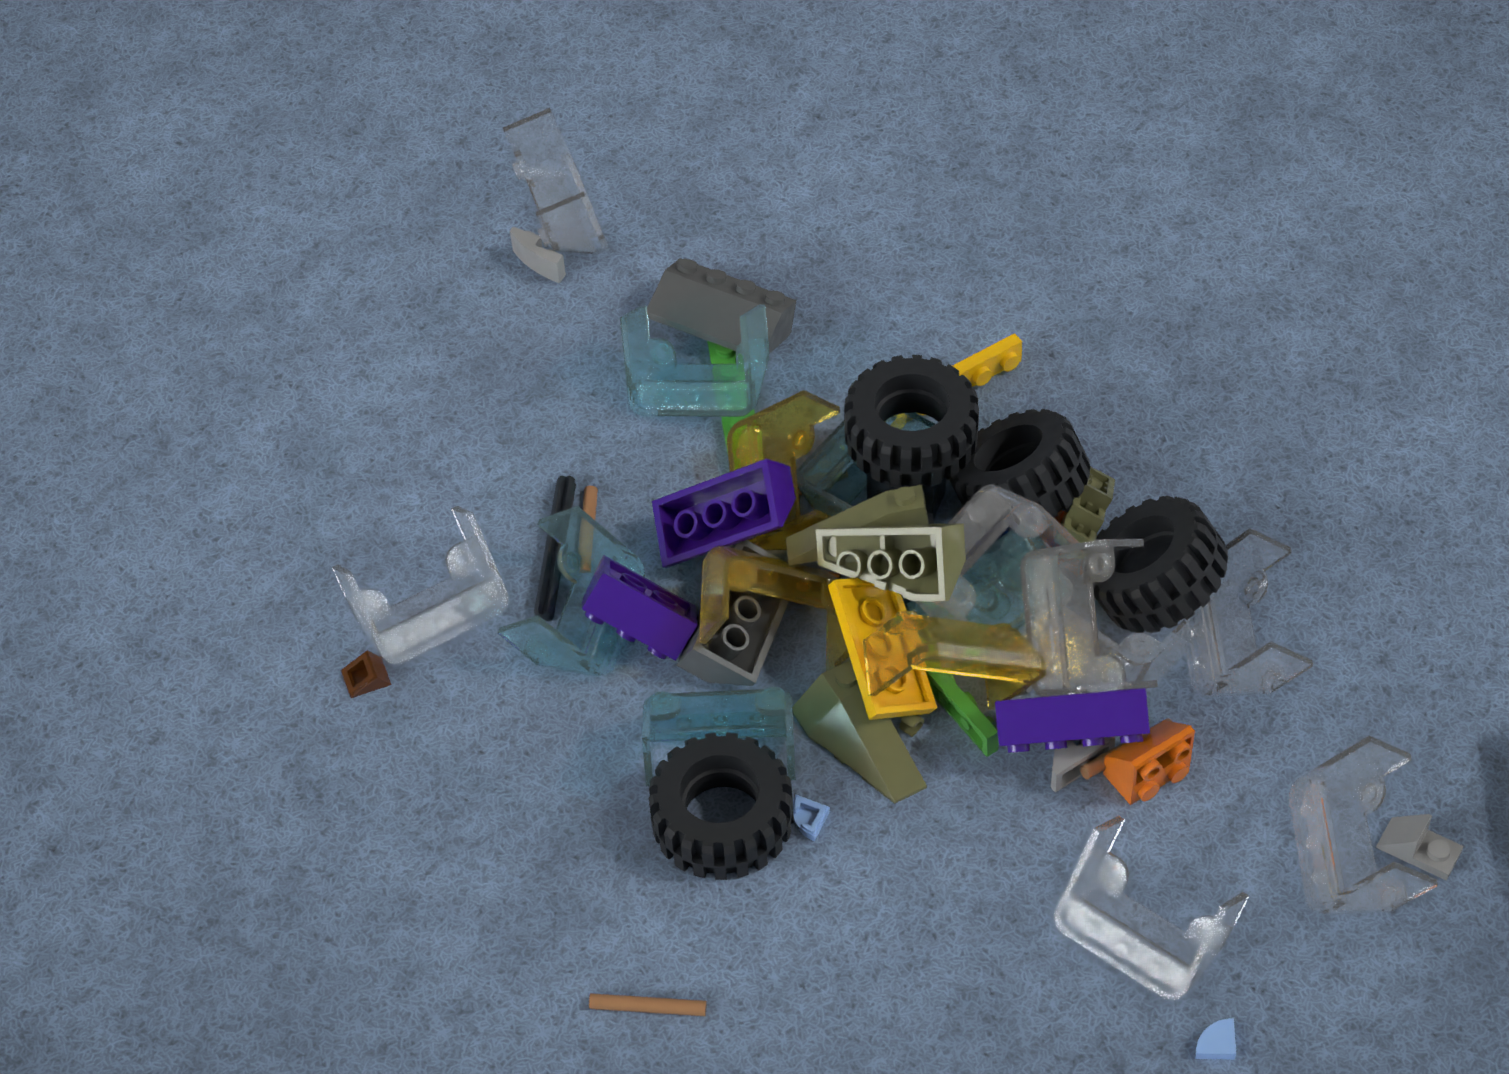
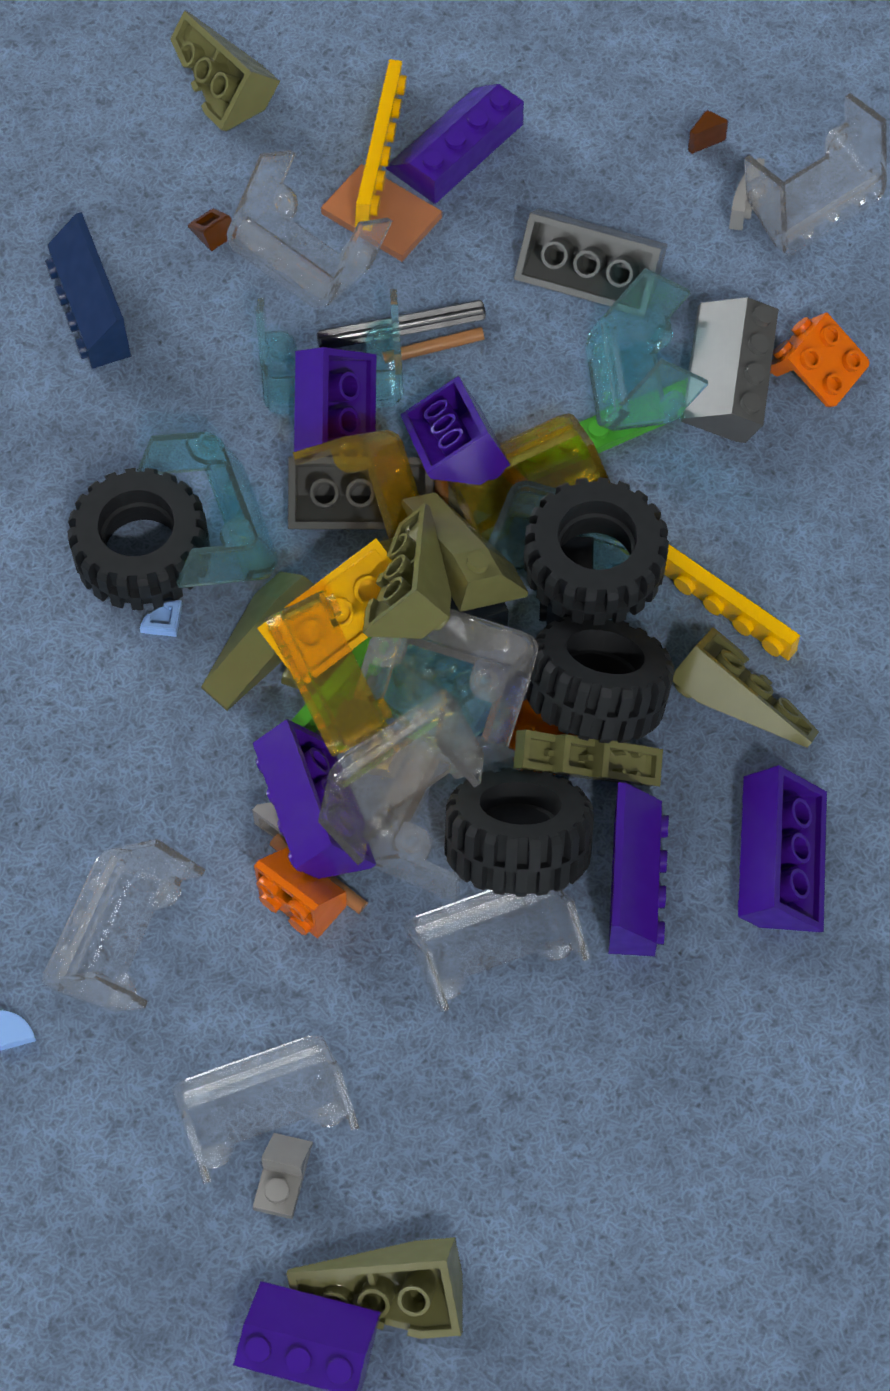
camera: 70 degrees right, 10 degrees up
(192, 617) = (228, 77): none -> olive wedge
(346, 506) = (383, 132): none -> yellow plate
(364, 450) = (459, 141): none -> dark purple slope
(408, 786) = (88, 295): none -> dark blue slope
(412, 533) = (409, 214): none -> nougat tile
(451, 264) = (707, 132): none -> reddish brown slope
(554, 384) = (584, 257): none -> dark grey slope
(731, 249) = (821, 358): none -> orange bracket
(1047, 392) = (718, 679): none -> olive wedge
(1208, 409) = (782, 851): none -> dark purple slope
(1224, 509) = (636, 873): none -> dark purple slope

